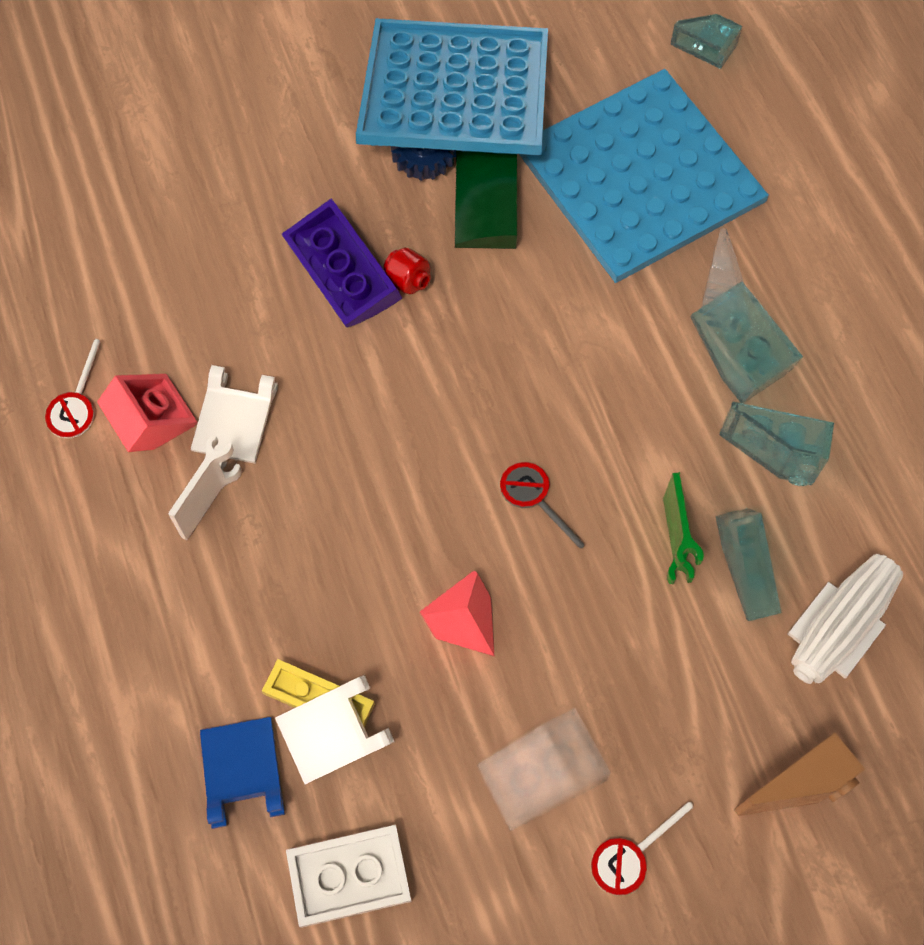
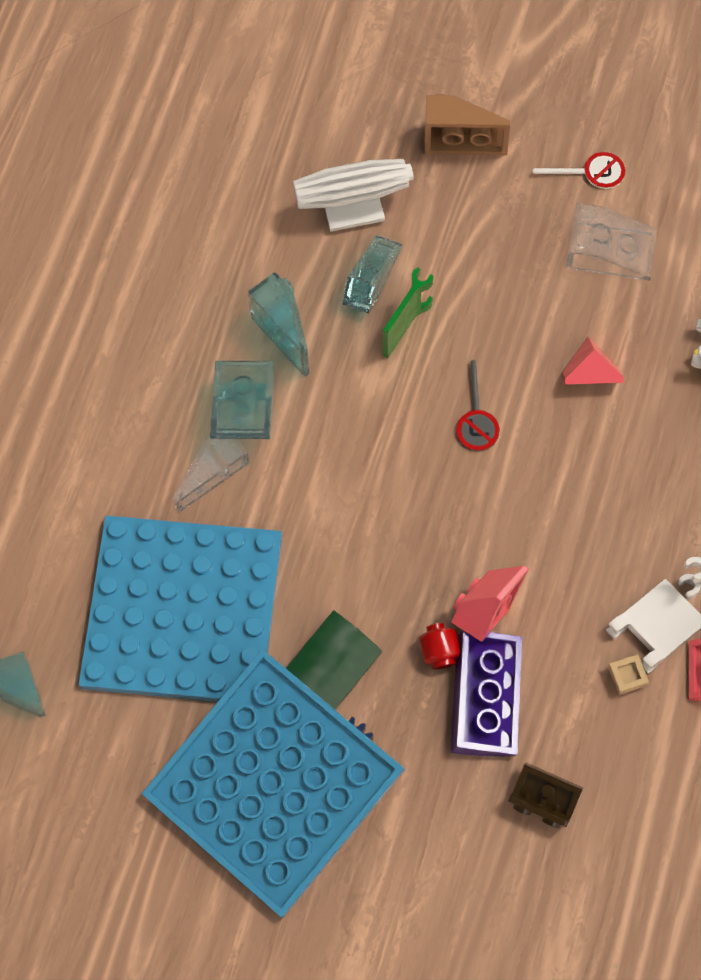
camera: 140 degrees left, 0 degrees up
(230, 353) = (628, 674): none -> tan plate
(234, 213) = (545, 796): none -> dark brown bracket
(392, 316) = (488, 601): none -> coral slope

